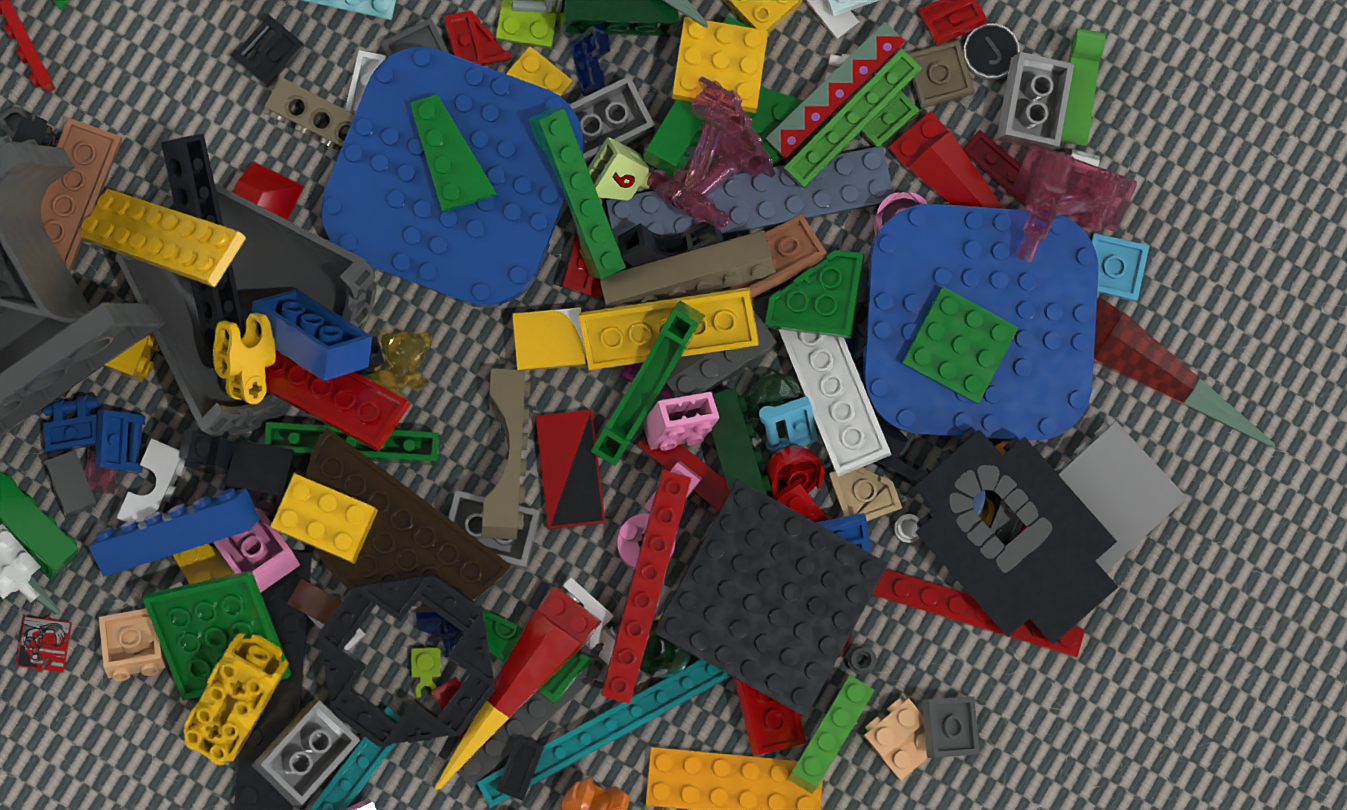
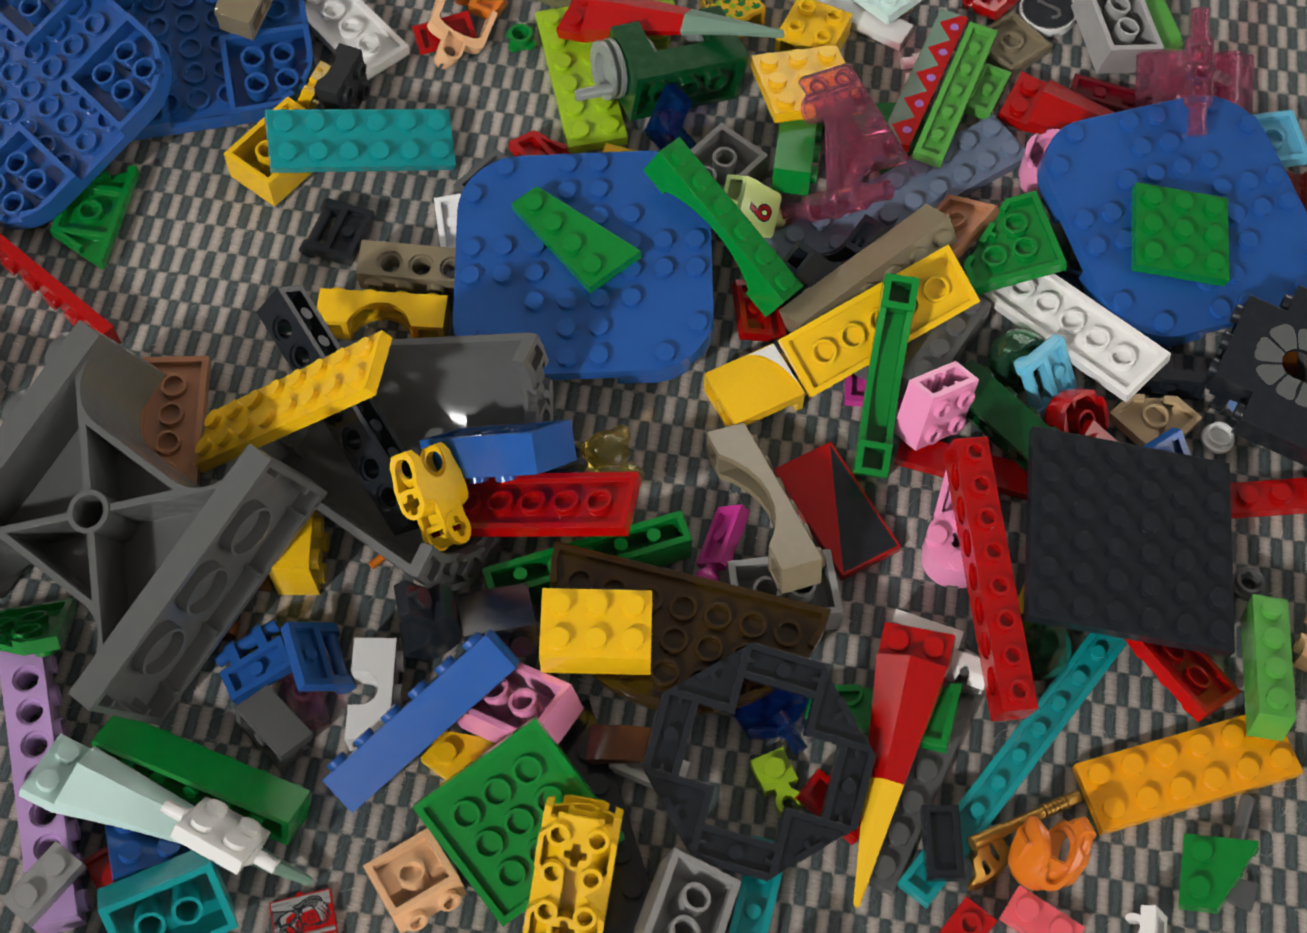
camera: 20 degrees left, 20 degrees down
(244, 135) = (351, 309): none -> yellow arch
(462, 468) = (721, 540): none -> dark pink plate
(549, 779) = (994, 835): none -> pearl gold piece

